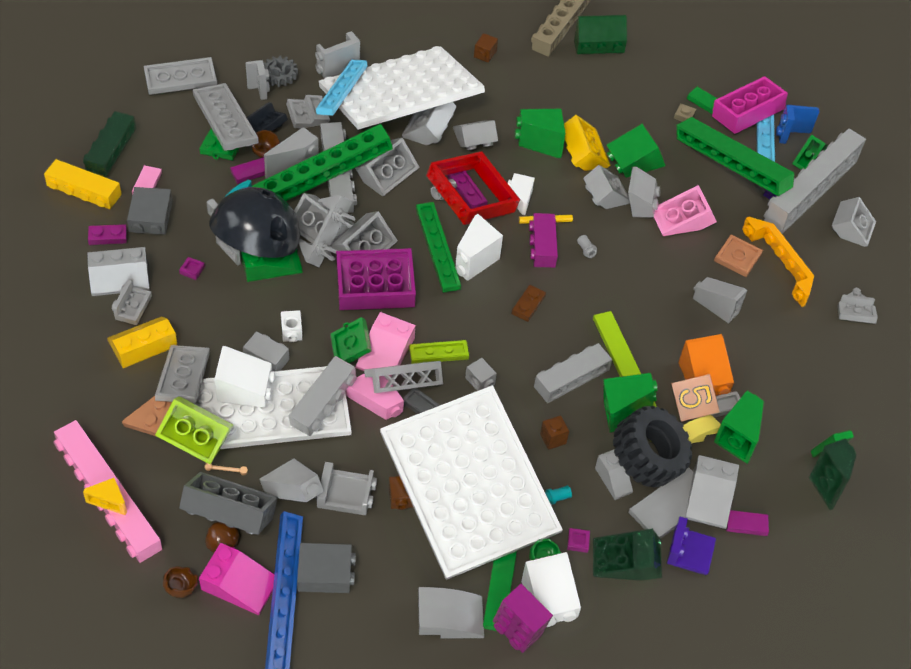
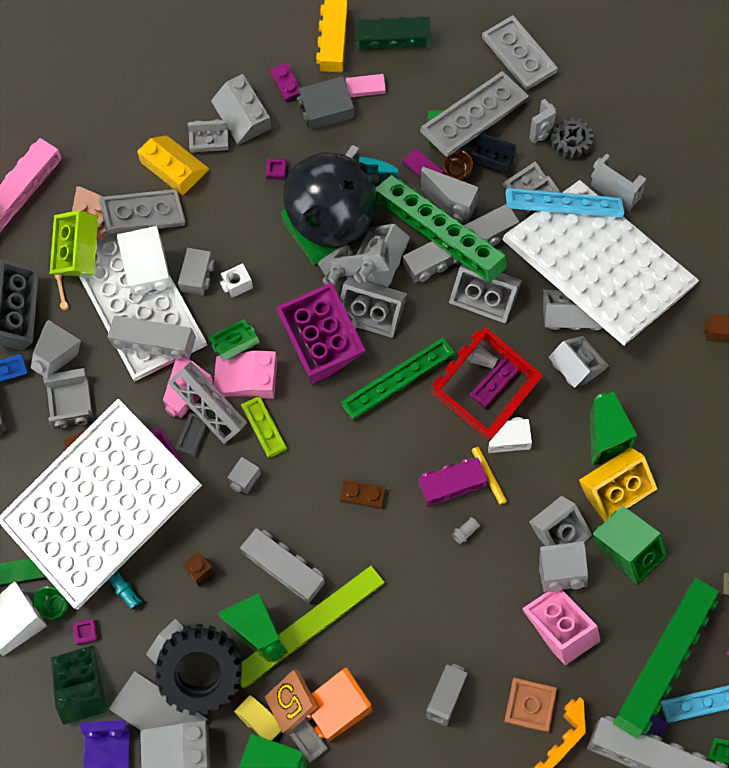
camera: 80 degrees right, 15 degrees up
(478, 248) = (401, 414): white slope -> none

